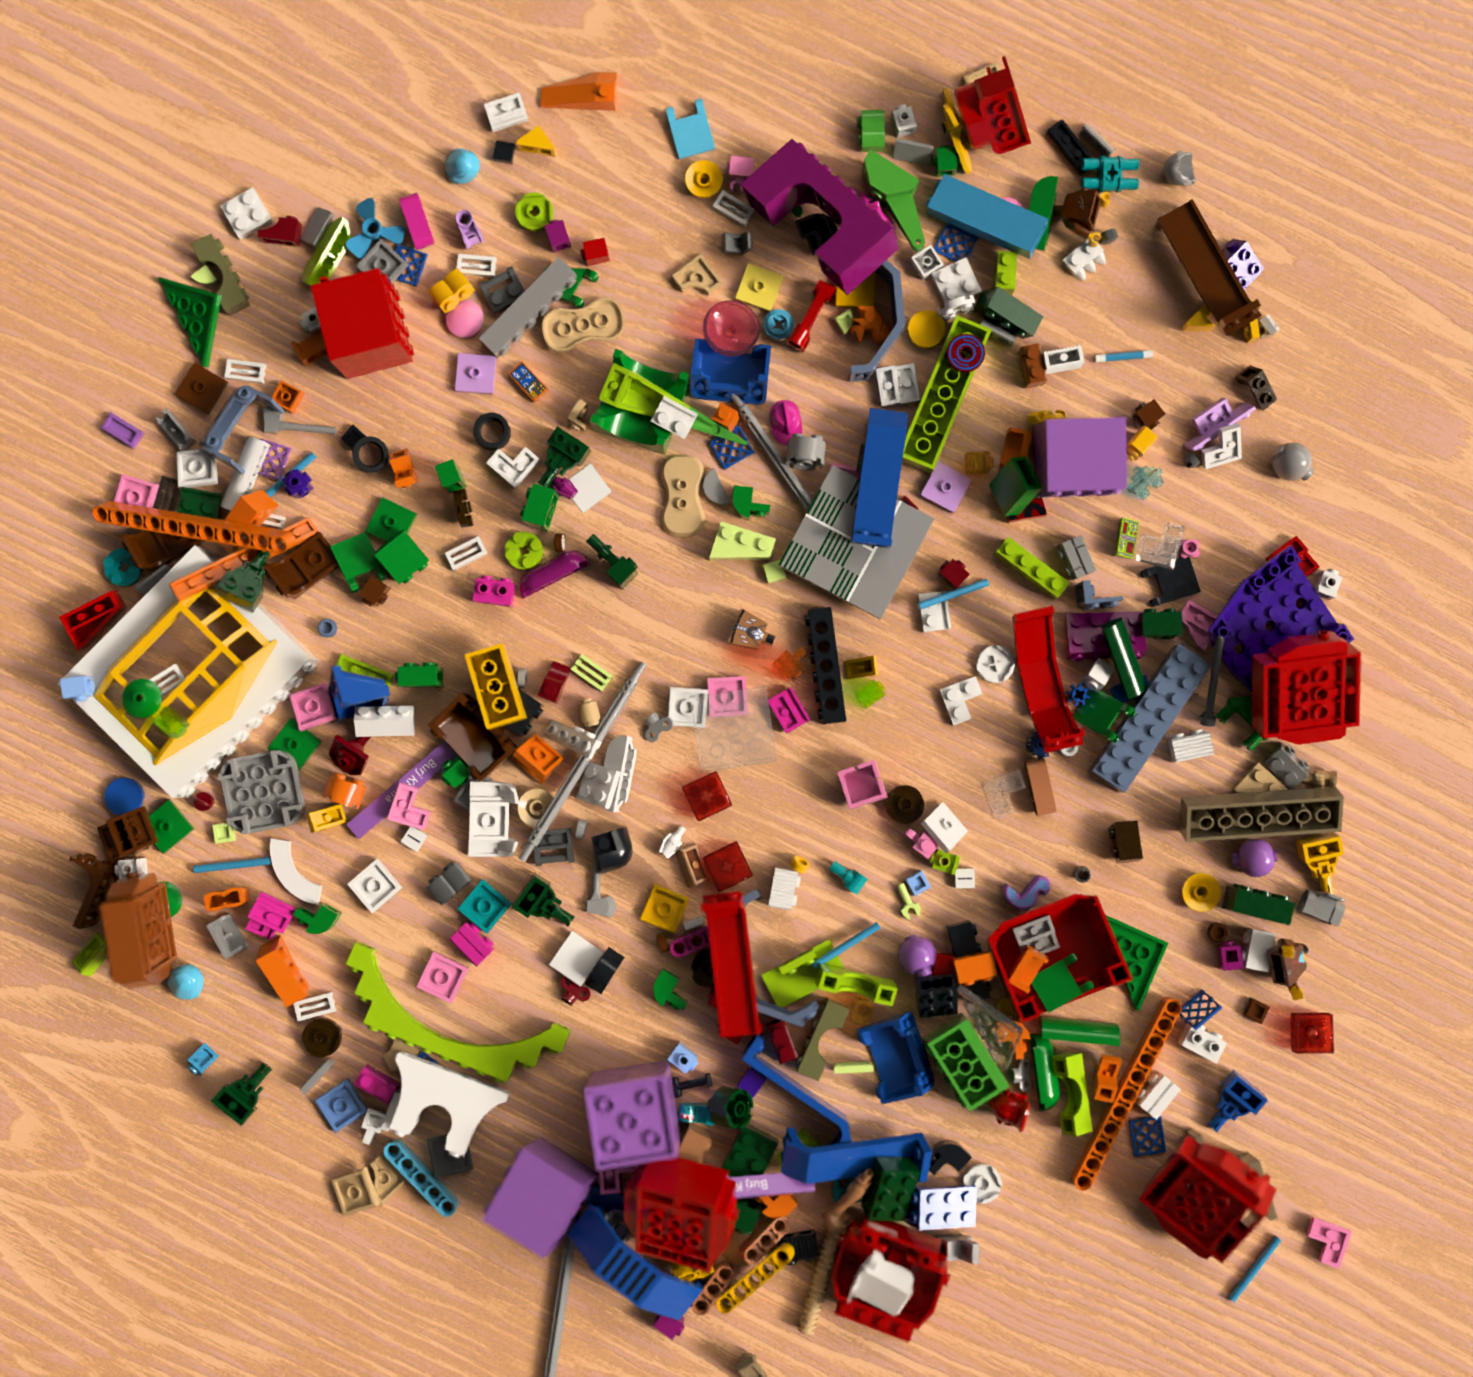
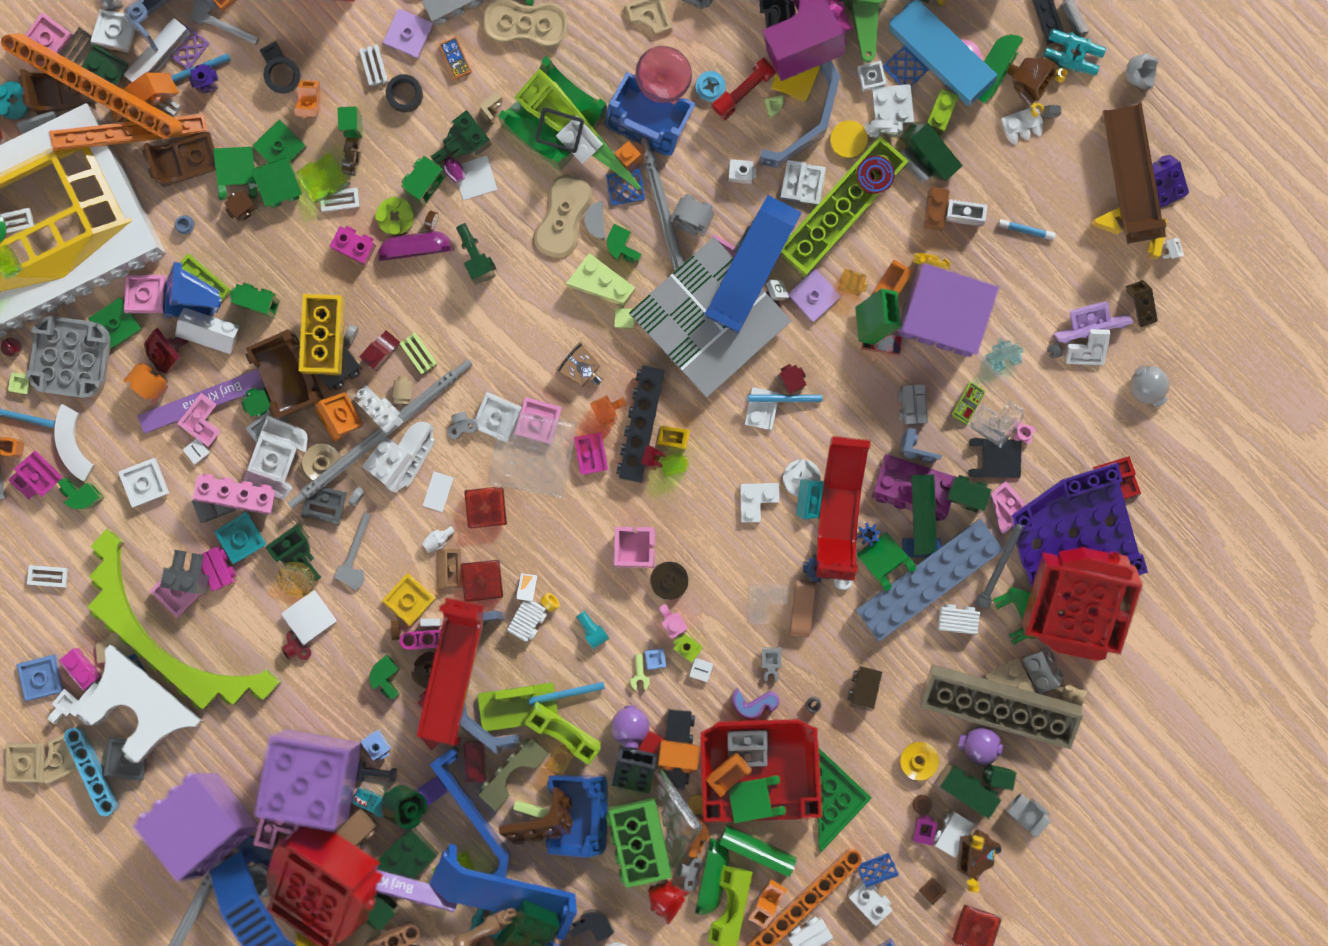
camera: 10 degrees right, 0 degrees up
(245, 583) = (121, 155): dark green brick -> none
(282, 971) = (28, 532): orange wedge -> none
(313, 1080) = (27, 642): light grey tile -> none
(326, 818) = (119, 403): yellow slope -> none
(332, 1032) = (42, 596): dark brown plate -> none
(442, 966) = (188, 581): none -> dark grey brick
(443, 538) = (323, 178): none -> clear neon green slope
(445, 402) = (369, 50): none -> white tile
(465, 868) = (234, 495): none -> bright pink brick
(513, 470) = (411, 137): white plate -> none
(551, 927) = (296, 579): none -> clear yellow tile
(604, 970) = (331, 637): black brick -> none
(612, 849) = (379, 526): black brick -> none
(652, 399) = (544, 110): none -> black piece
(656, 796) = (438, 491): none -> white sticker
(759, 287) = (704, 45): light yellow plate -> none
(772, 858) = (526, 587): none -> white sticker
(778, 1205) = (416, 915): orange brick -> none
(785, 420) = (685, 179): dark pink piece -> none
(836, 394) = (741, 171): none -> white brick
(847, 694) = (651, 458): none -> dark red tile
(872, 321) = (799, 113): orange animal -> none
(879, 1076) = (552, 826): none -> reddish brown bracket
(909, 494) = (777, 290): none -> white tile
(944, 827) = (698, 614): white plate -> none
(1010, 681) = (809, 498): none -> teal slope
(1028, 846) = (771, 660): none -> light grey plate
(1031, 568) = (867, 399): lime brick -> none
(1098, 675) = (894, 522): white brick -> none
(1140, 443) = (1010, 317): yellow brick -> none
(1148, 415) = (1029, 293): reddish brown brick -> none
(1283, 881) = (999, 777): none -> dark green brick
(1321, 855) = (1045, 765): yellow brick -> none
(1323, 588) = (1138, 517): white brick -> none

